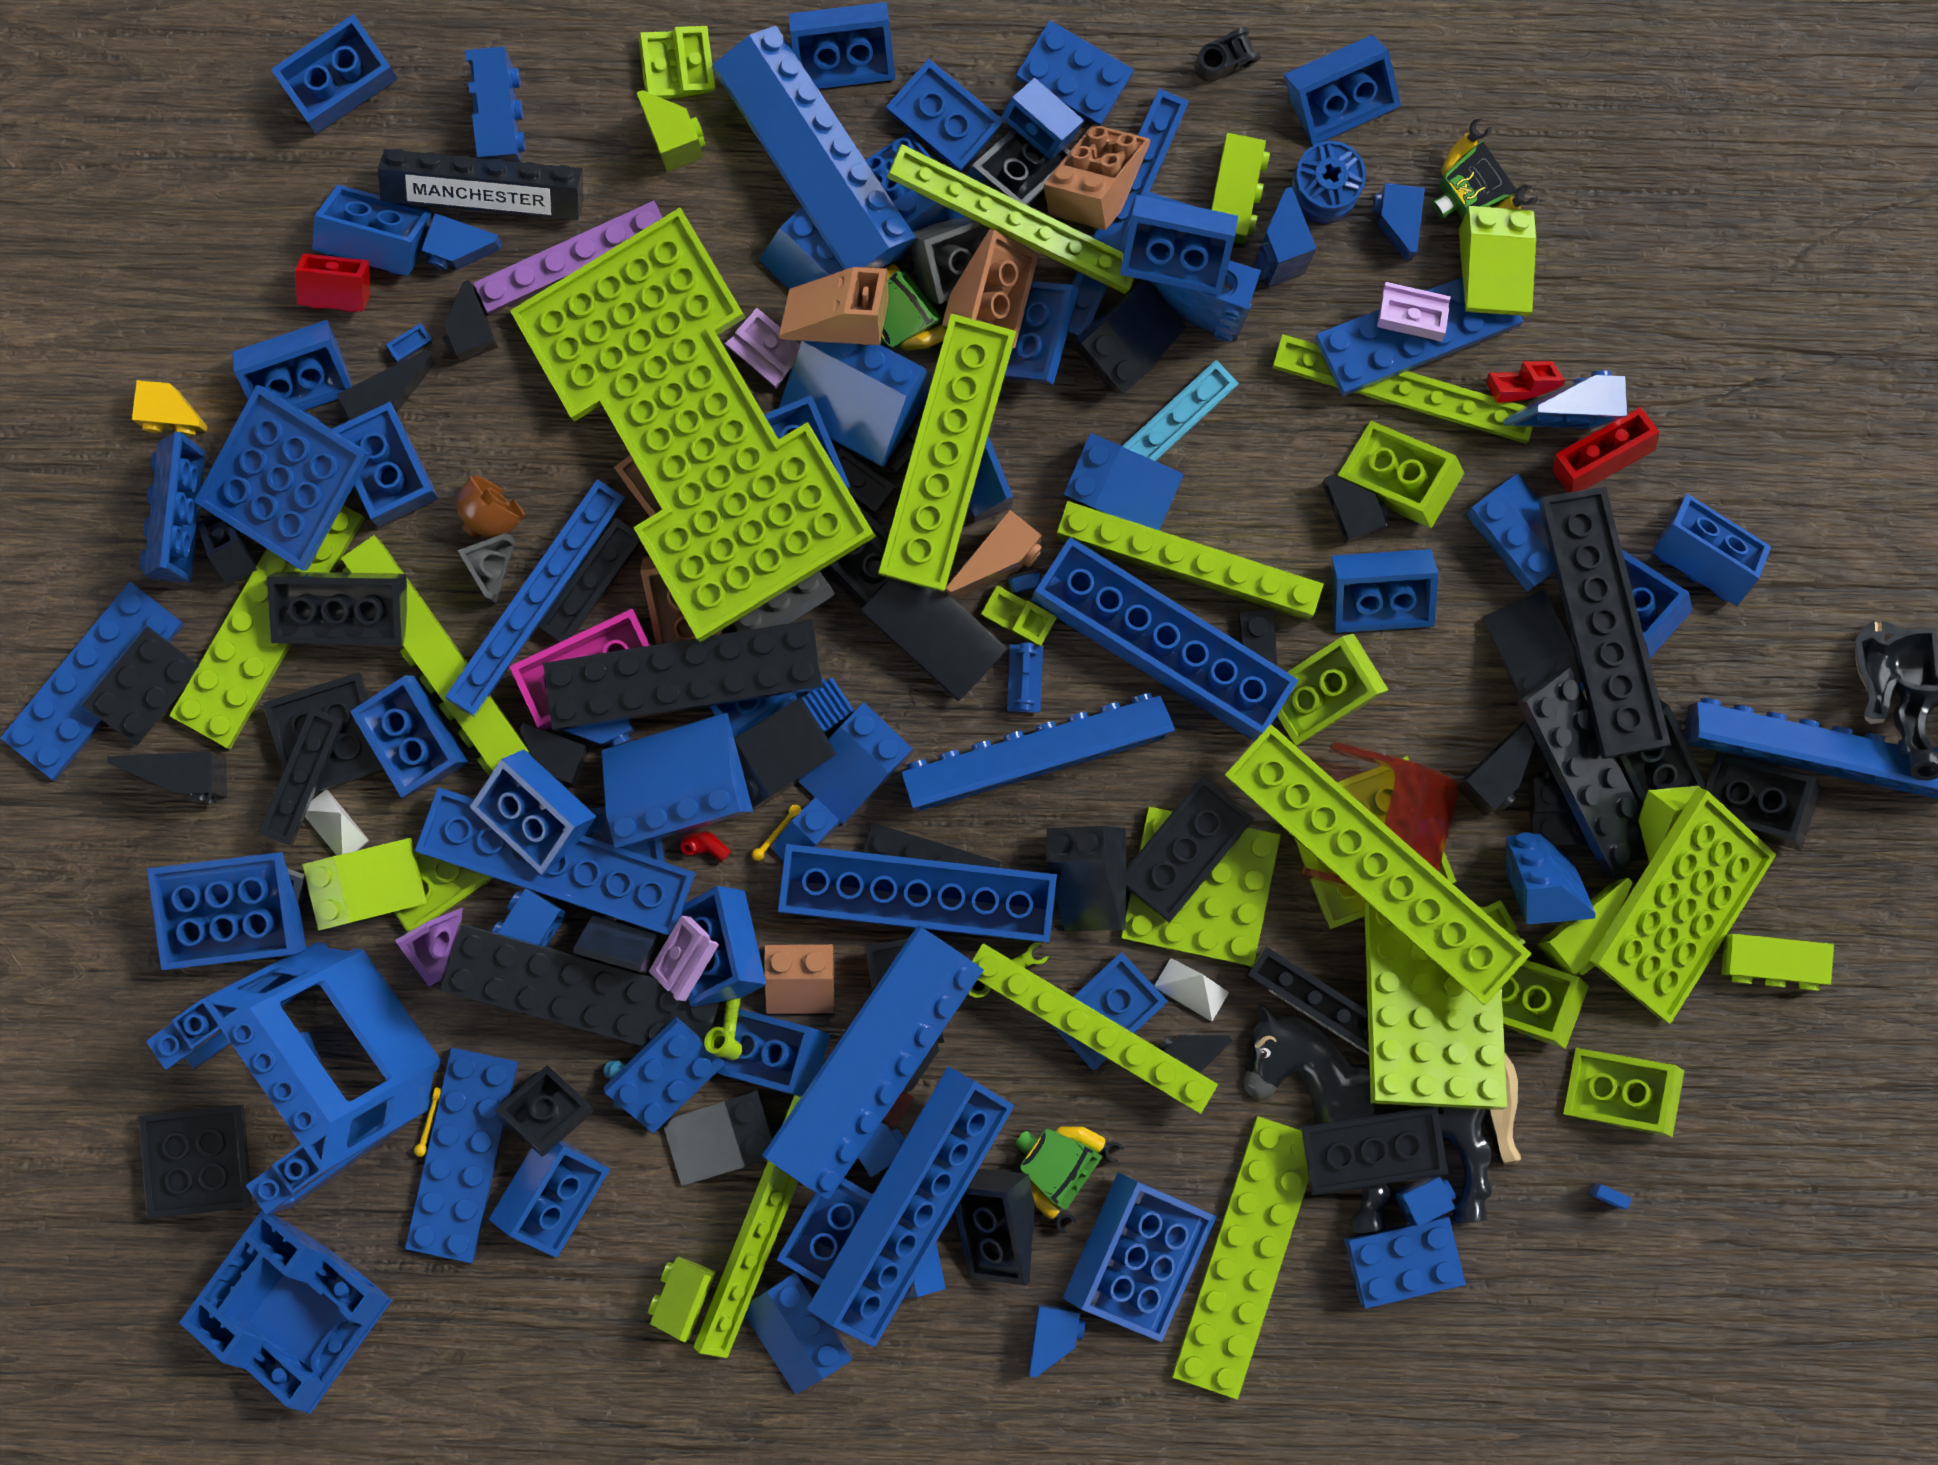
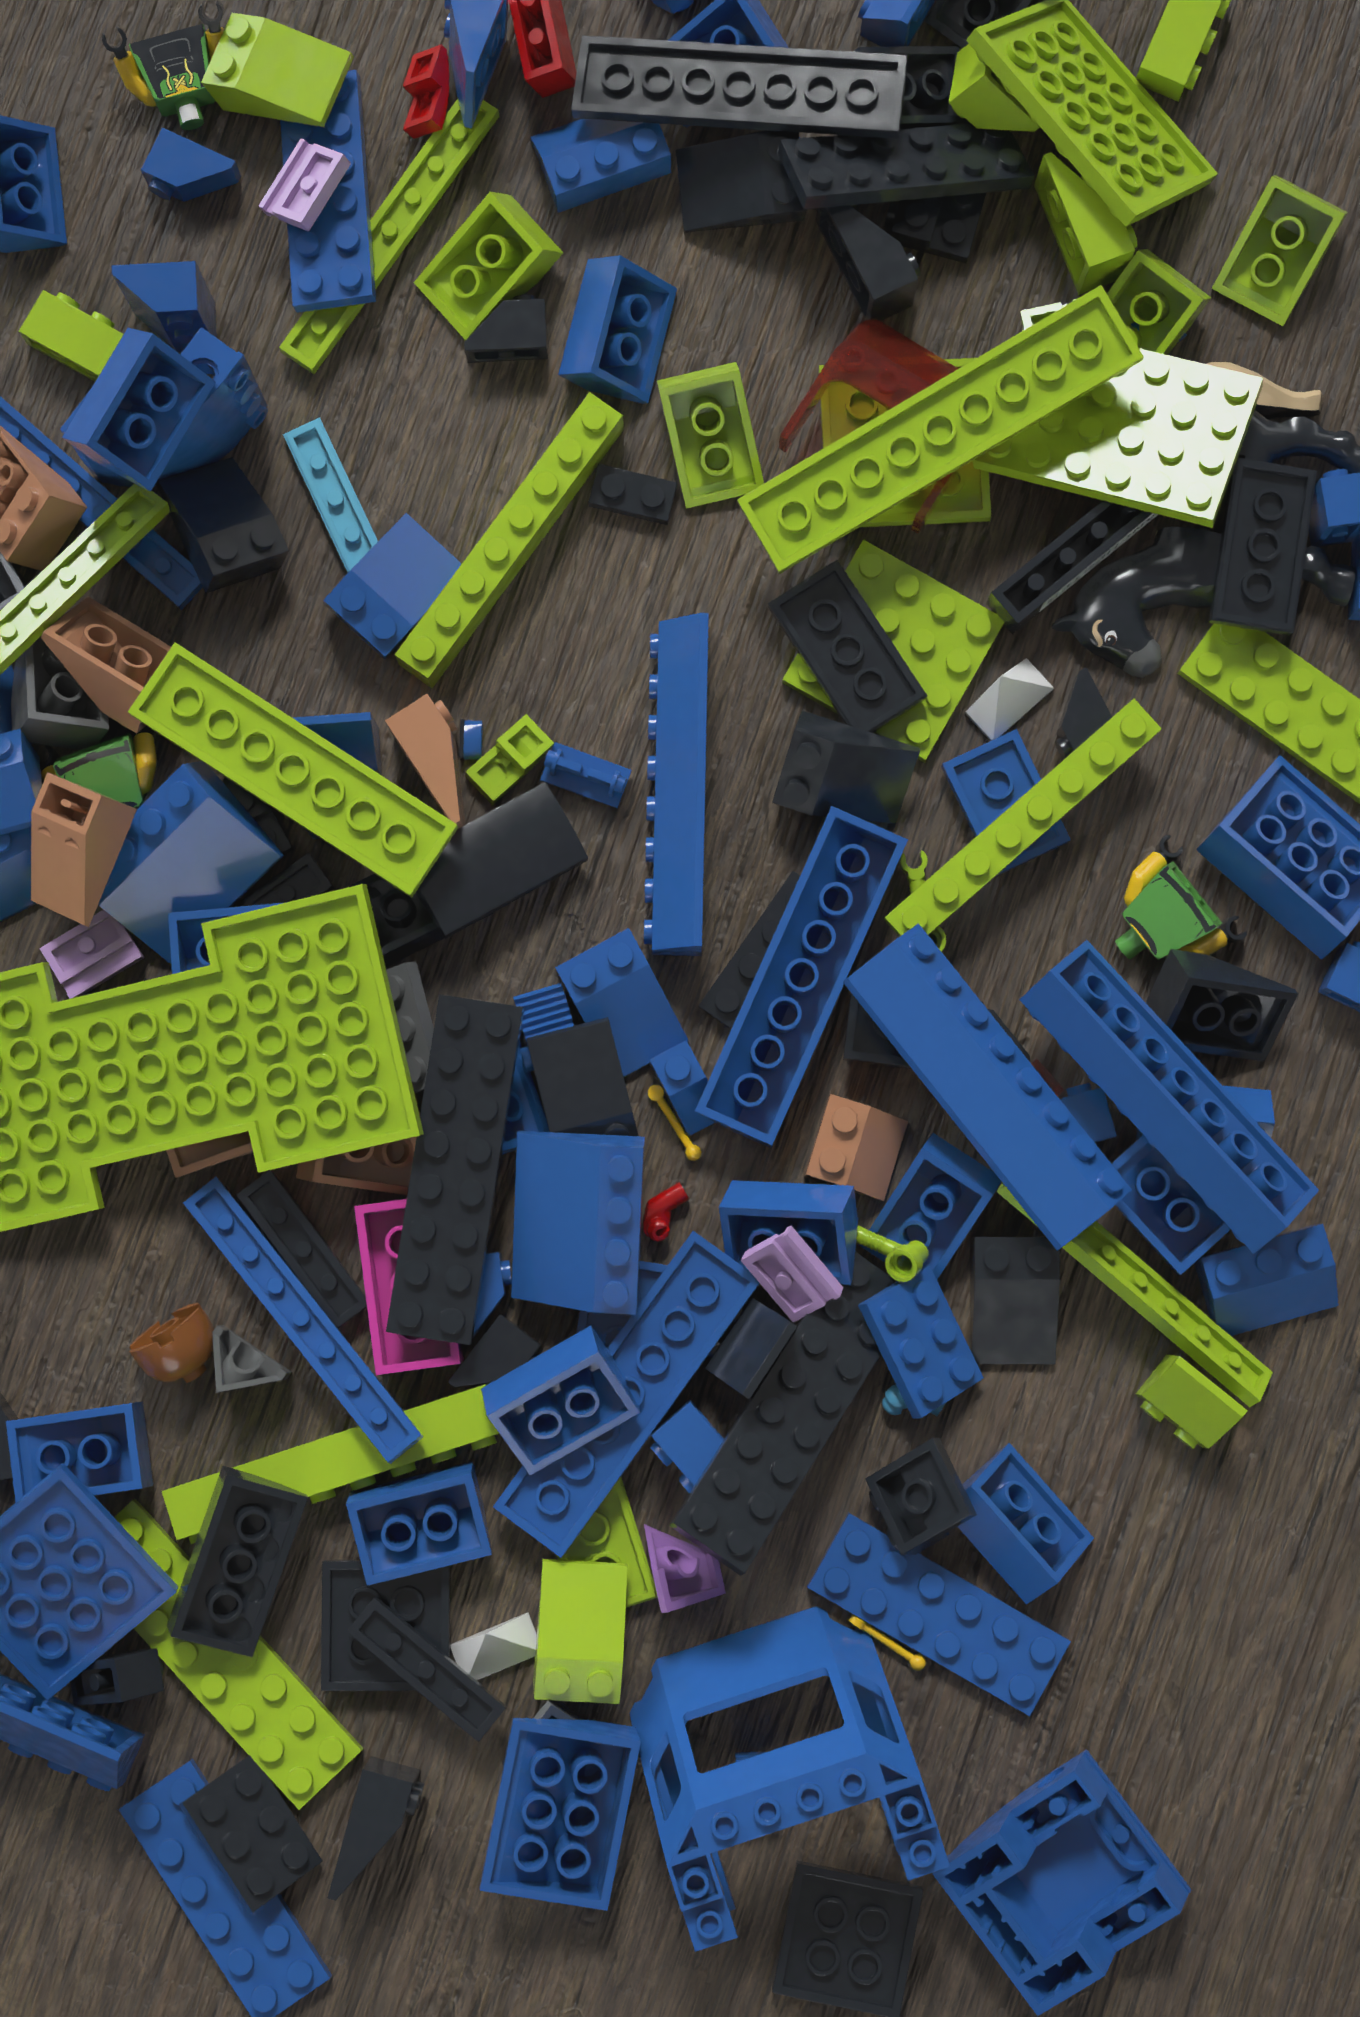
camera: 65 degrees left, 0 degrees up
(1042, 333) = (183, 616): blue plate -> none
(1163, 640) = (595, 597): blue slope -> none
(1321, 198) = (136, 234): blue wheel -> none
(1545, 881) = (1016, 254): blue slope -> none

